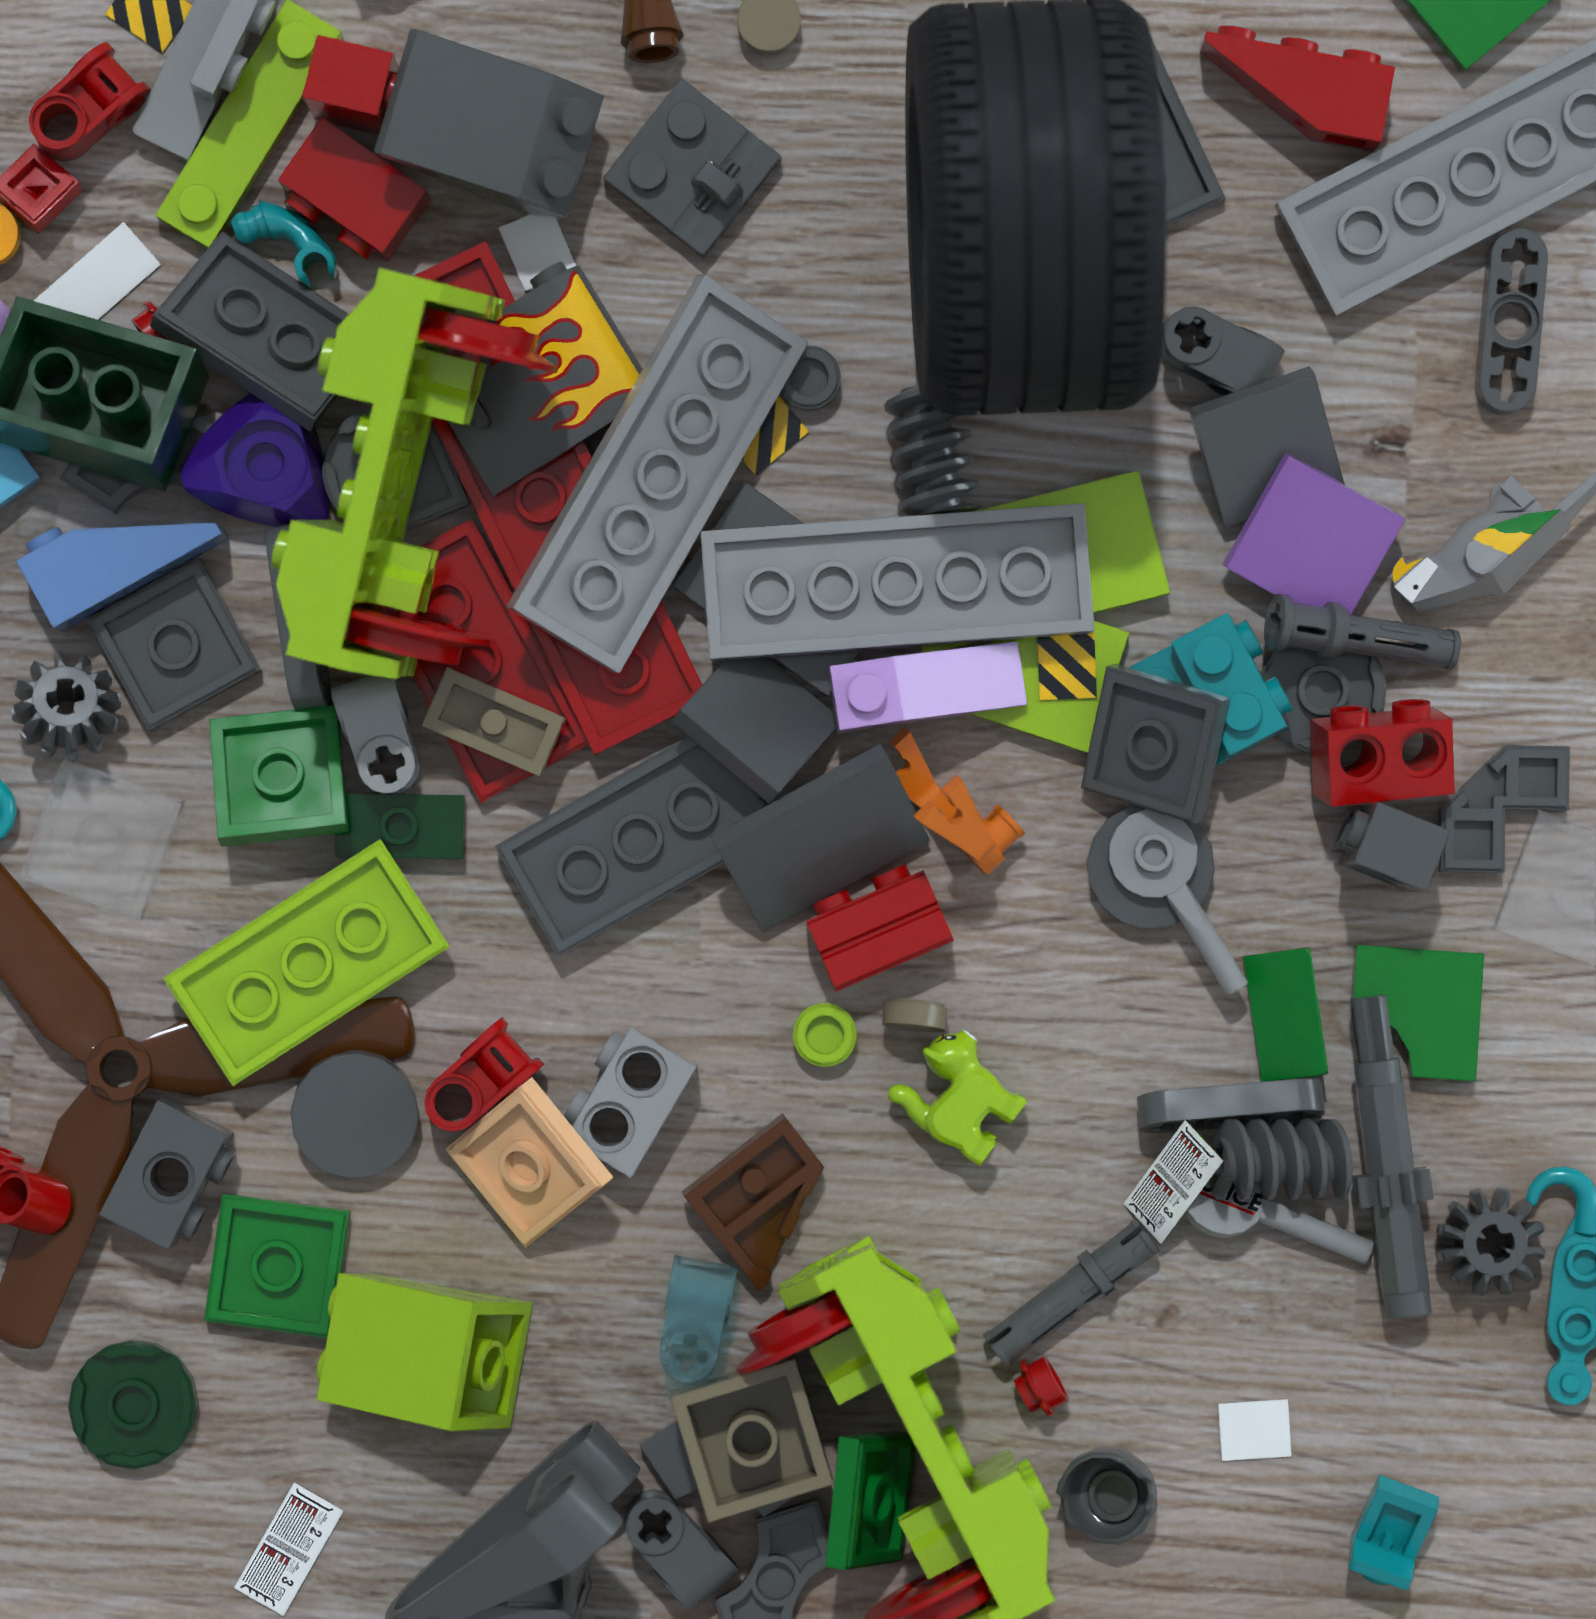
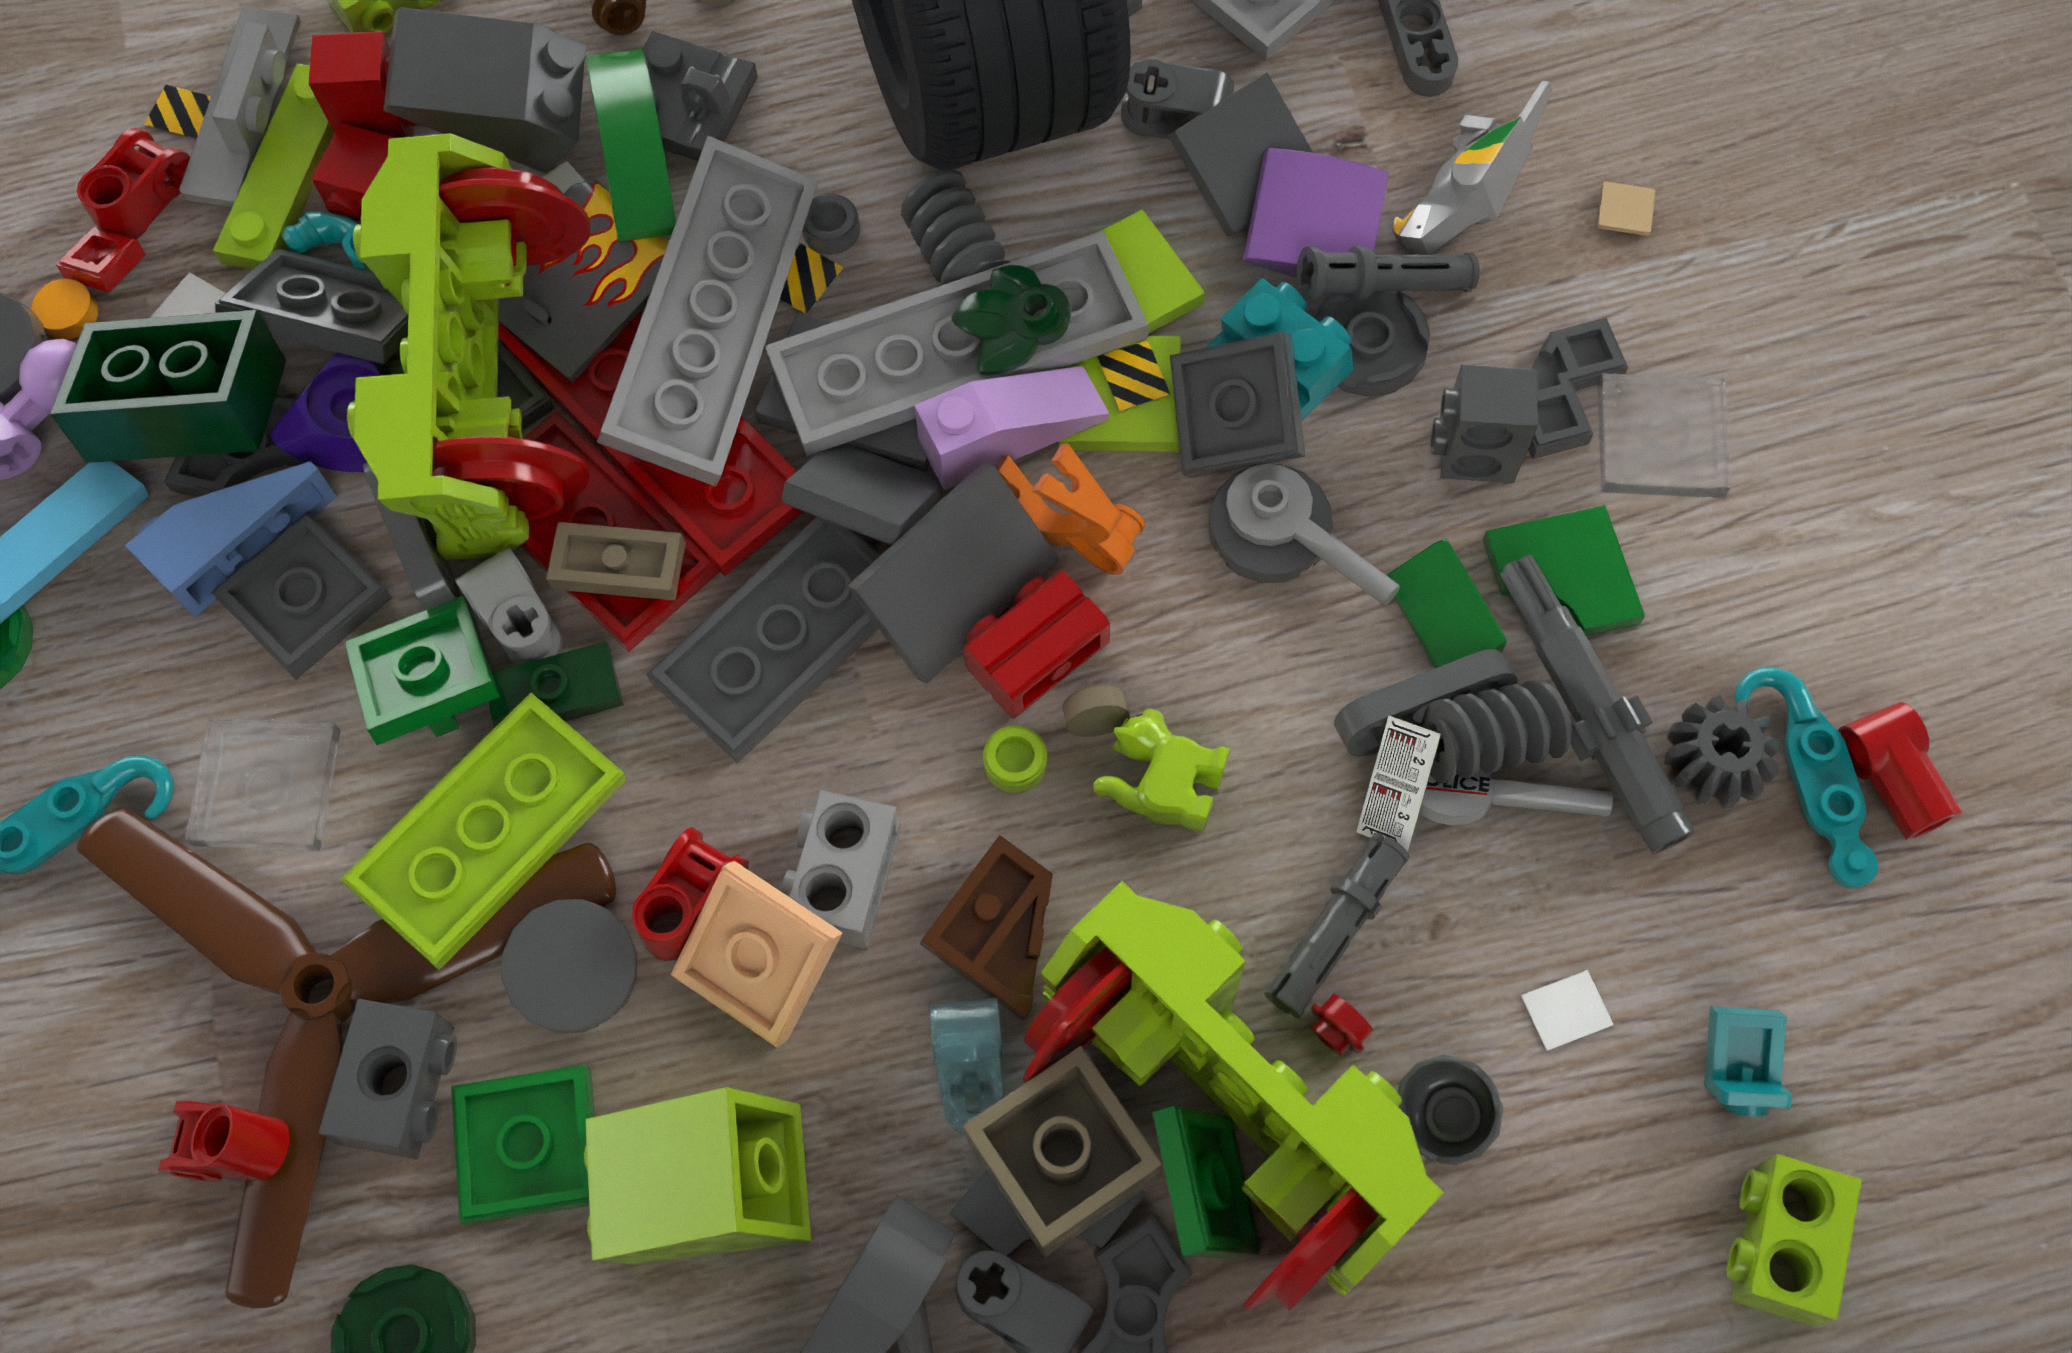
camera: 10 degrees left, 20 degrees down
(91, 705) = (200, 666): dark grey gear -> none
(624, 237) = (631, 145): none -> green slope
(948, 585) = (1007, 321): none -> dark green plate
(1380, 769) = (1442, 353): red brick -> none

